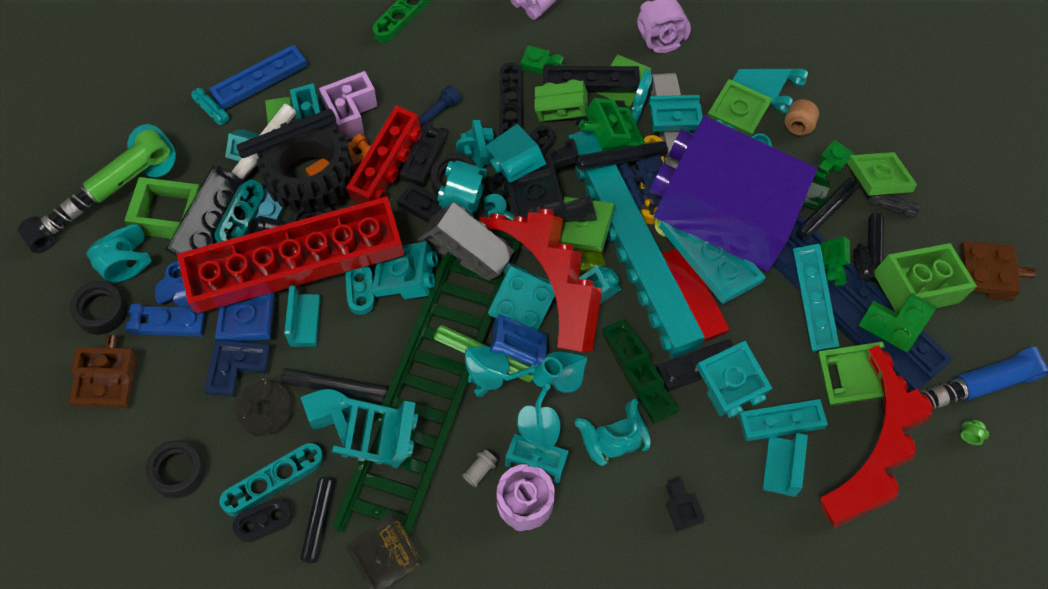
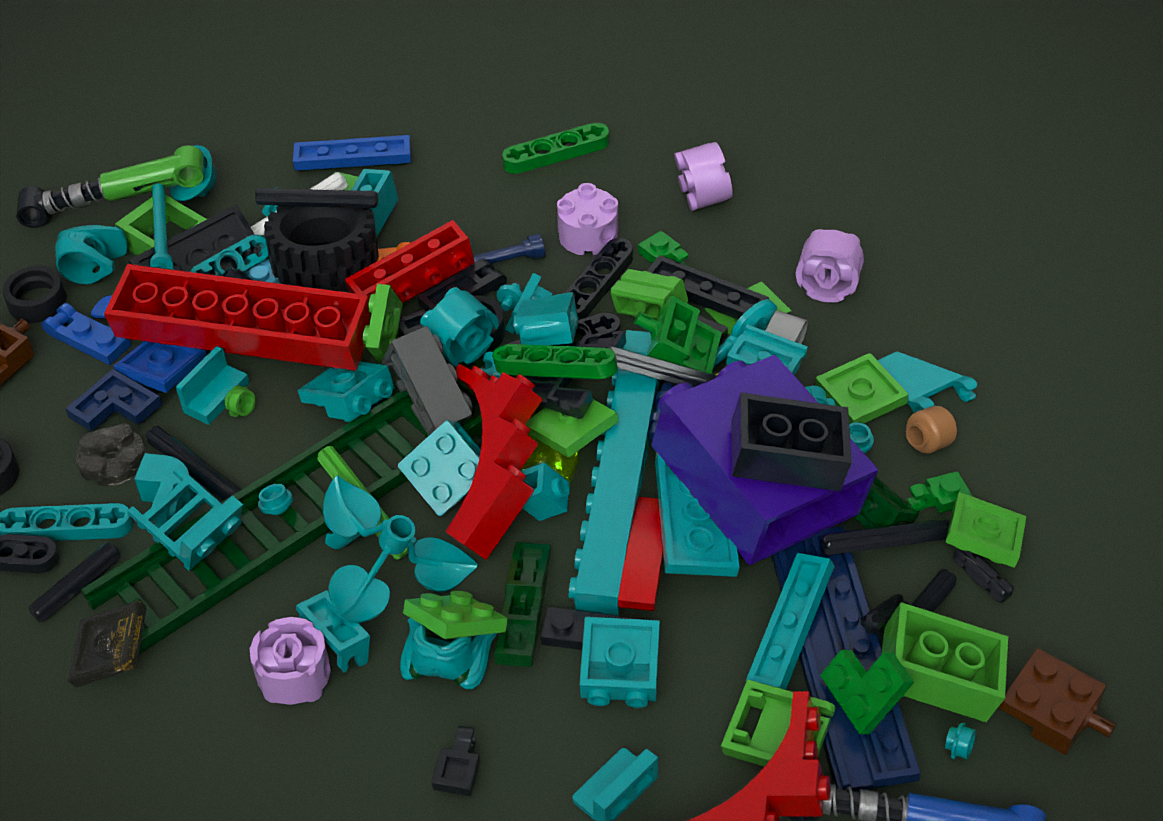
camera: 35 degrees right, 15 degrees down
(200, 238) = (161, 258): none -> teal bar
(210, 106) = (284, 161): teal axle -> none
(330, 318) = (240, 401): none -> bright green plate
(348, 100) = (417, 204): lavender brick -> none
(360, 290) = (283, 393): teal plate -> none
(405, 220) = (384, 321): none -> bright green plate
(420, 383) = (274, 499): none -> teal plate
(475, 59) = (587, 219): none -> lavender brick
(480, 468) = (266, 614): light grey pin -> none
(527, 339) = (411, 500): blue plate -> none
(548, 188) = (587, 364): none -> green beam
(612, 406) = (455, 615): none -> bright green plate
(771, 179) = (790, 442): none -> black brick
(782, 420) = (640, 730): teal plate -> none
(835, 255) = (846, 585): green plate -> none
(957, 324) = (960, 741): none -> teal plate

